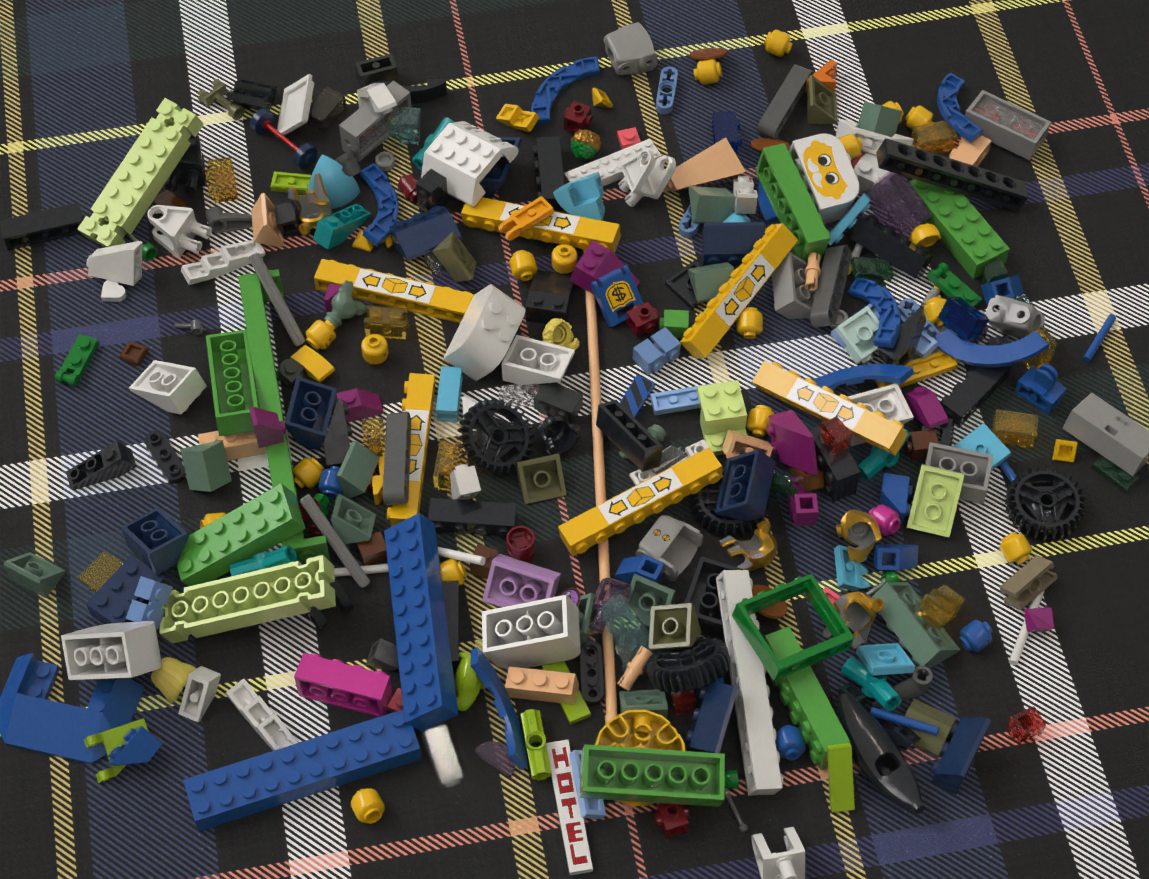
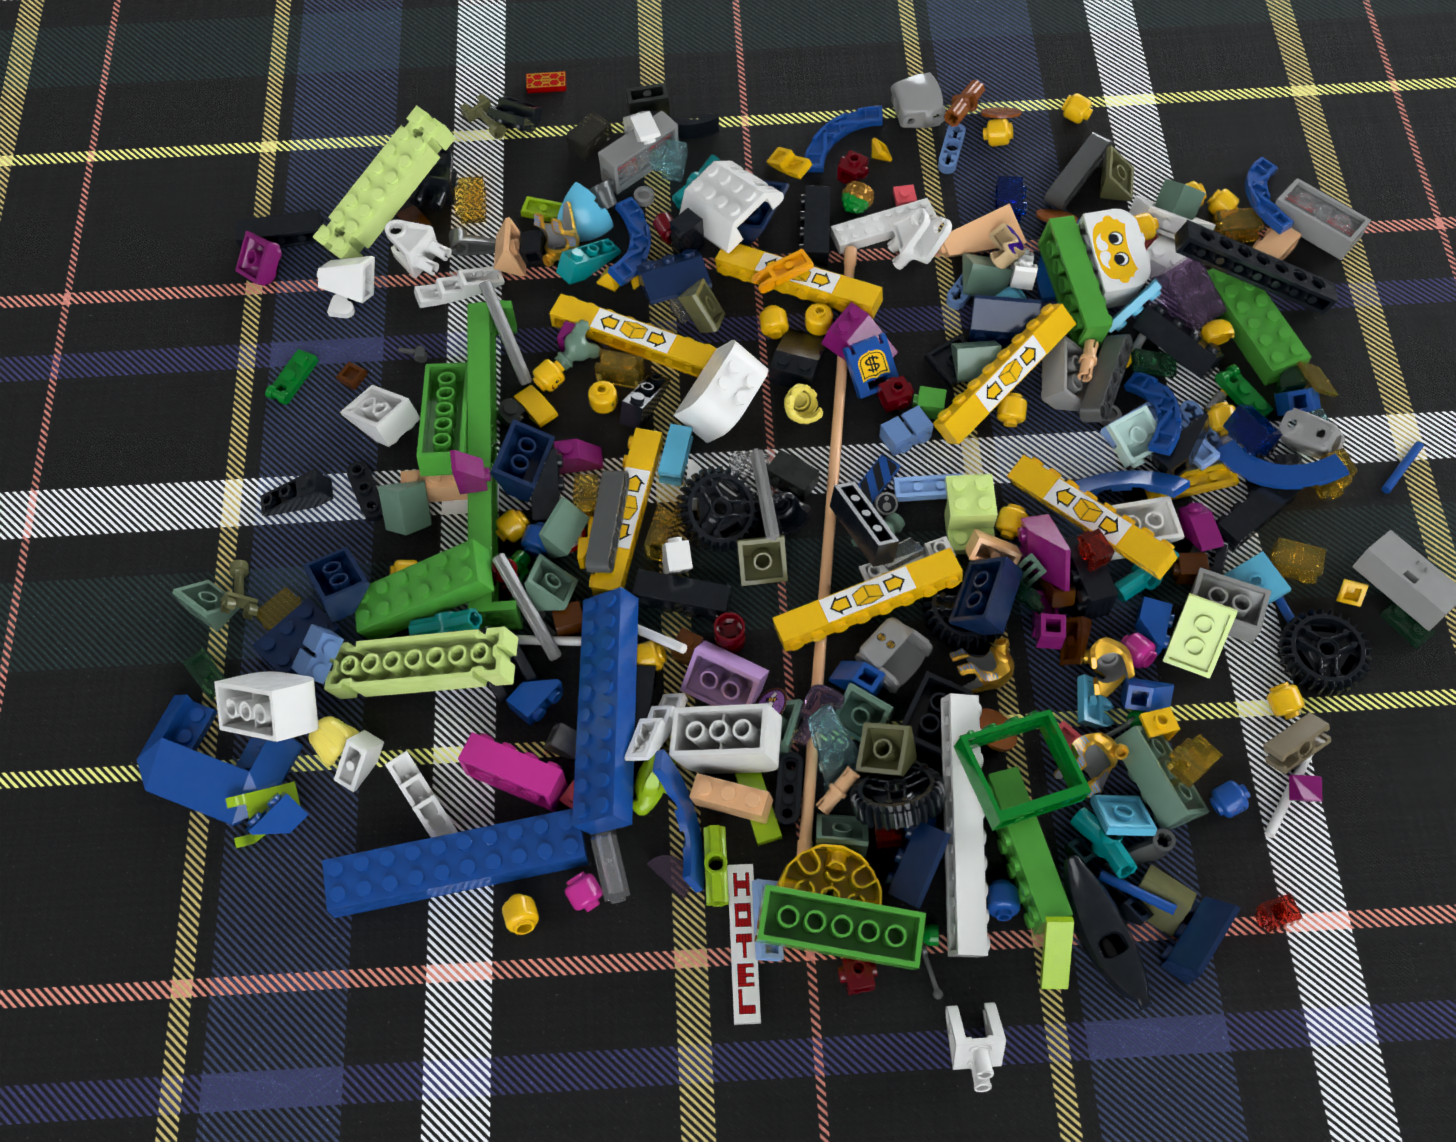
camera: 10 degrees right, 5 degrees up
(27, 254) = (258, 259): none -> magenta slope
(43, 634) = (204, 672): none -> clear green plate
(61, 565) = (230, 600): none -> olive bar
(148, 250) = (387, 268): green hinge -> none
(262, 122) = (522, 142): dark blue axle -> none
(275, 62) = (546, 82): none -> red tile
(295, 105) = (558, 129): white piece -> none
(351, 621) = (533, 699): none -> blue slope
(412, 348) = (643, 400): none -> black slope
(421, 780) = (583, 891): none -> dark pink head
(466, 633) = (654, 729): none -> white slope
(535, 362) = (772, 429): white slope -> none
(536, 419) = (764, 494): none -> light grey axle
(582, 197) = (846, 254): medium azure brick -> none
(646, 417) = (885, 503): none -> tile
(673, 47) = (964, 103): none -> dark orange piece
(730, 175) = (1008, 243): none -> tan animal
(785, 454) = (1035, 564): none -> sand green tile
(826, 75) = (1126, 147): orange slope -> none
(828, 517) = (1076, 640): none -> reddish brown slope
(909, 578) = (1160, 723): none -> yellow bracket
(1017, 268) = (1317, 379): none -> clear yellow piece
(1041, 388) = (1332, 517): blue brick -> none

